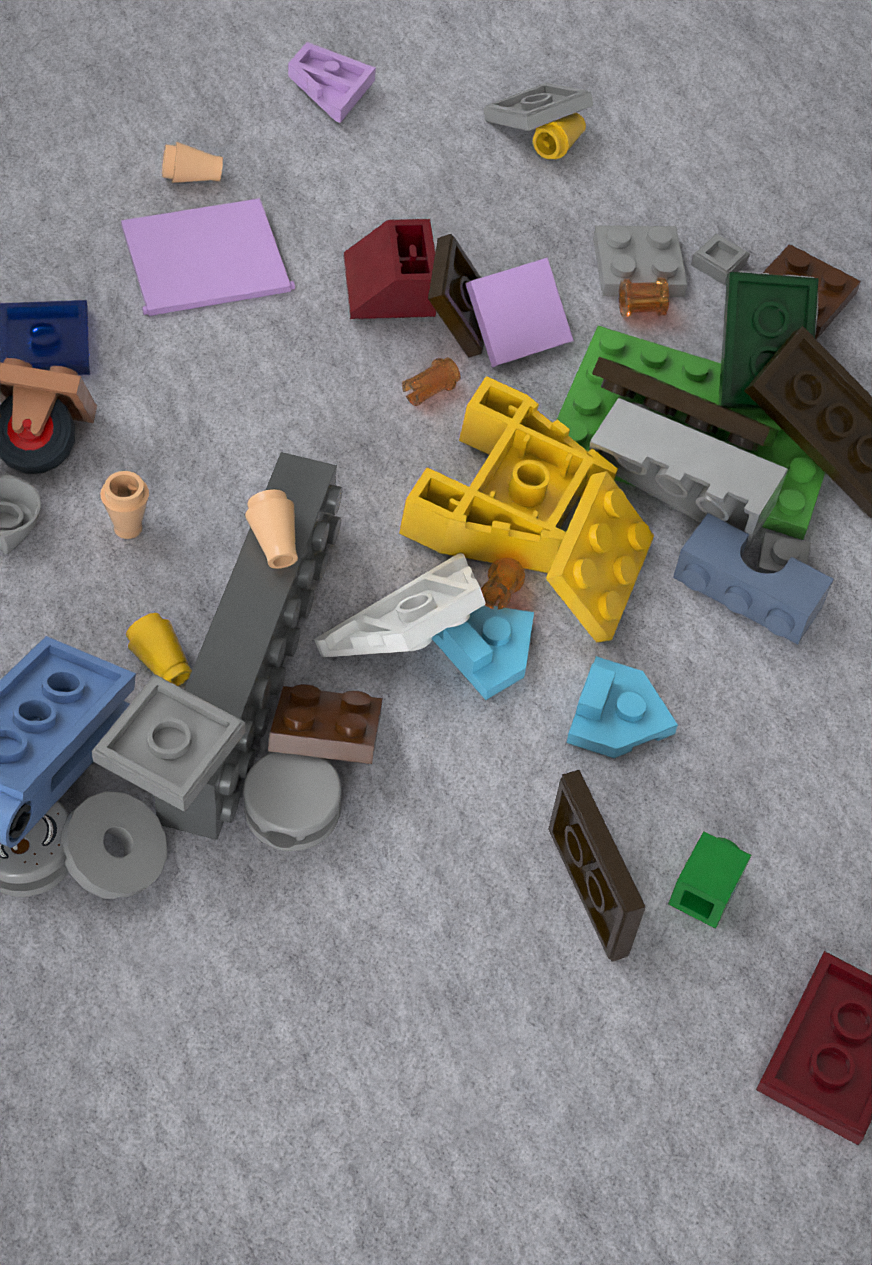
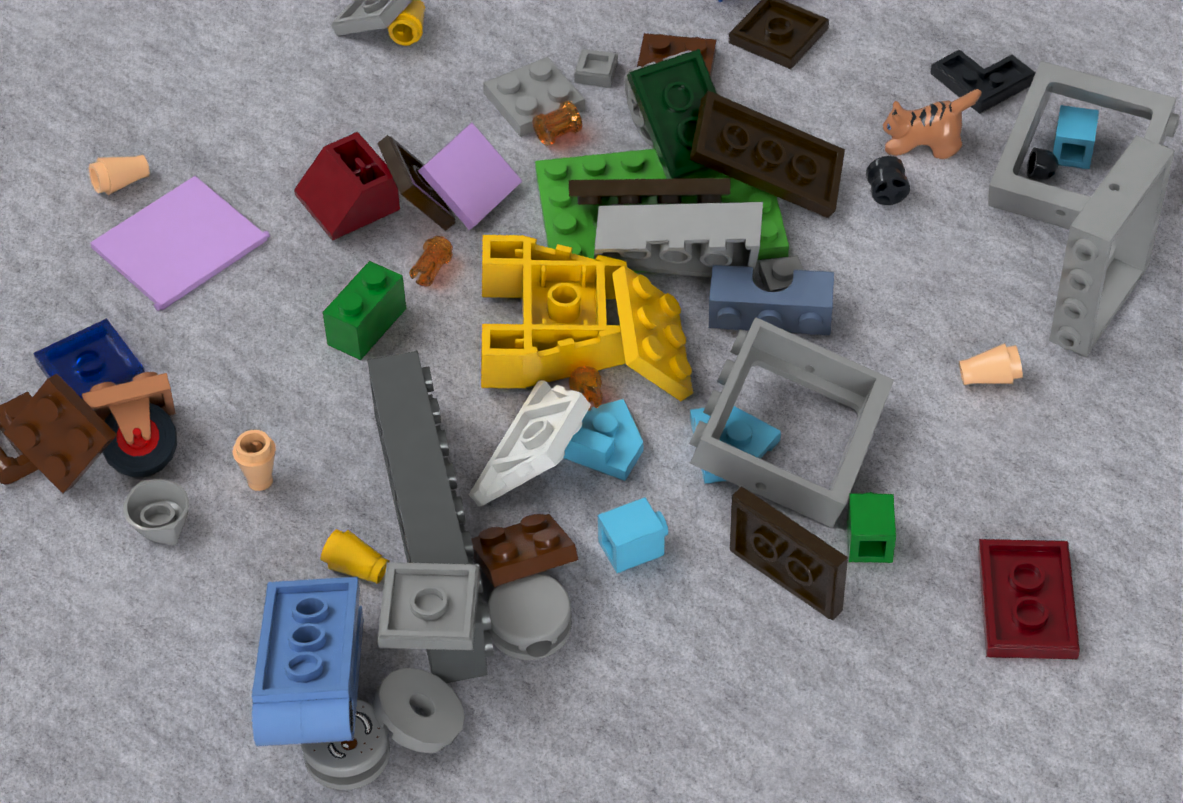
camera: 20 degrees left, 5 degrees down
(273, 525) = (404, 414): light nougat cone -> none
(330, 79) = (188, 53): lavender wing -> none
(331, 401) = (364, 310): none -> green brick
(452, 762) = (632, 534): none -> medium azure brick
(740, 665) = (816, 370): none -> light grey piece

